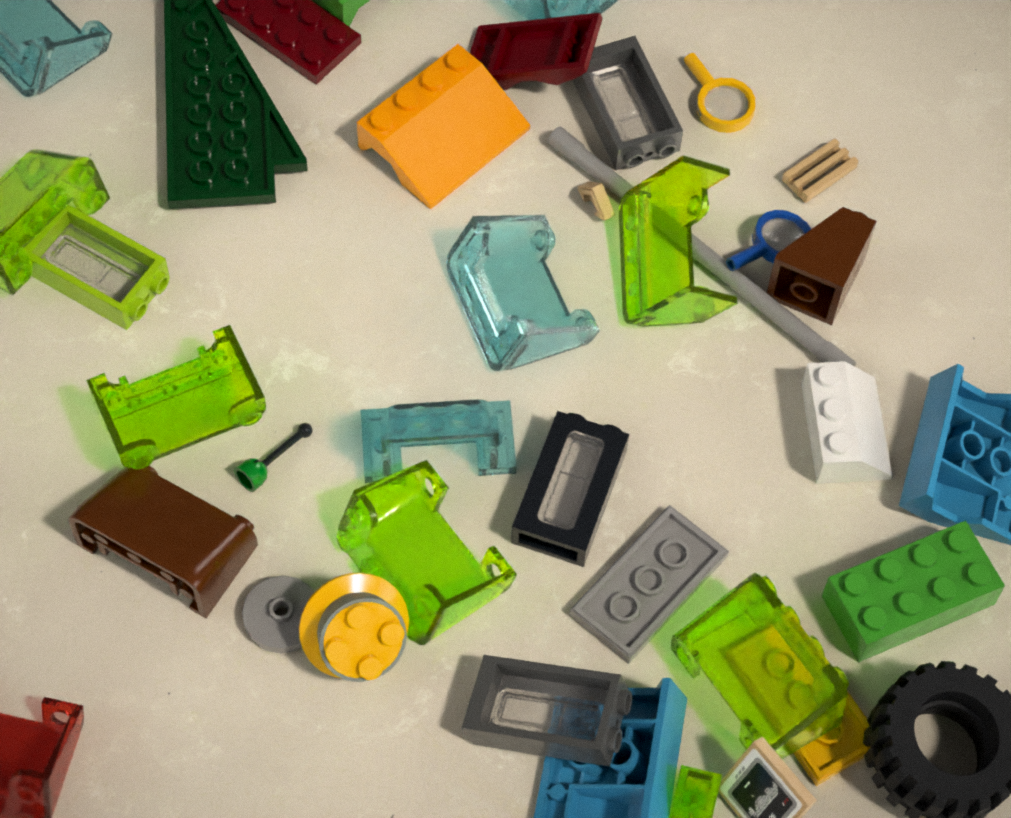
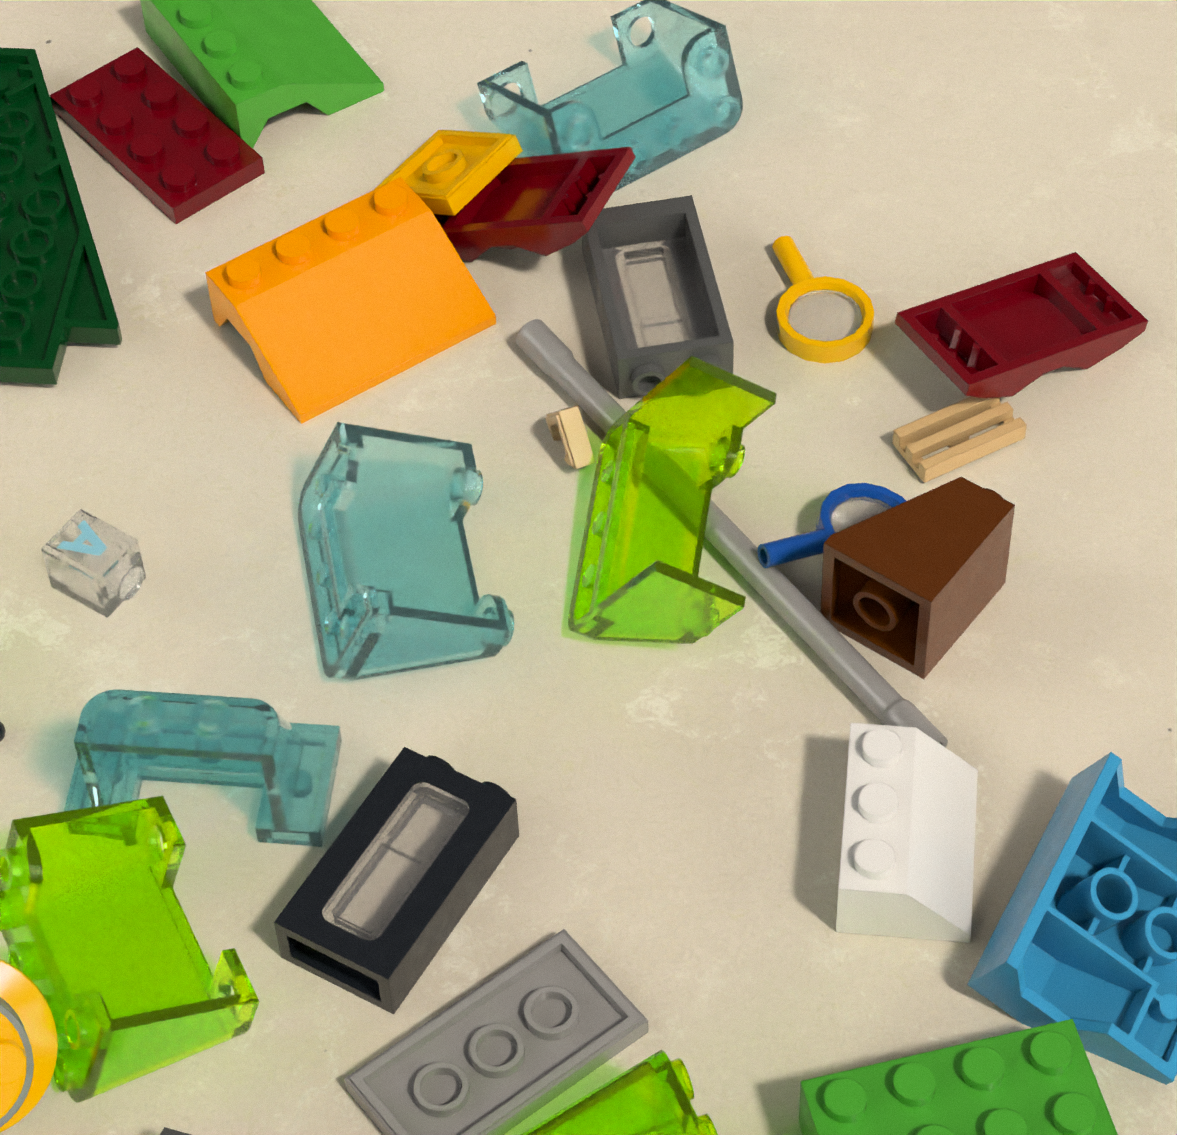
camera: 15 degrees right, 10 degrees down
(338, 317) = (94, 563): none -> clear brick
(482, 31) = (455, 167): none -> yellow tile
(845, 98) = (1023, 326): none -> dark red slope

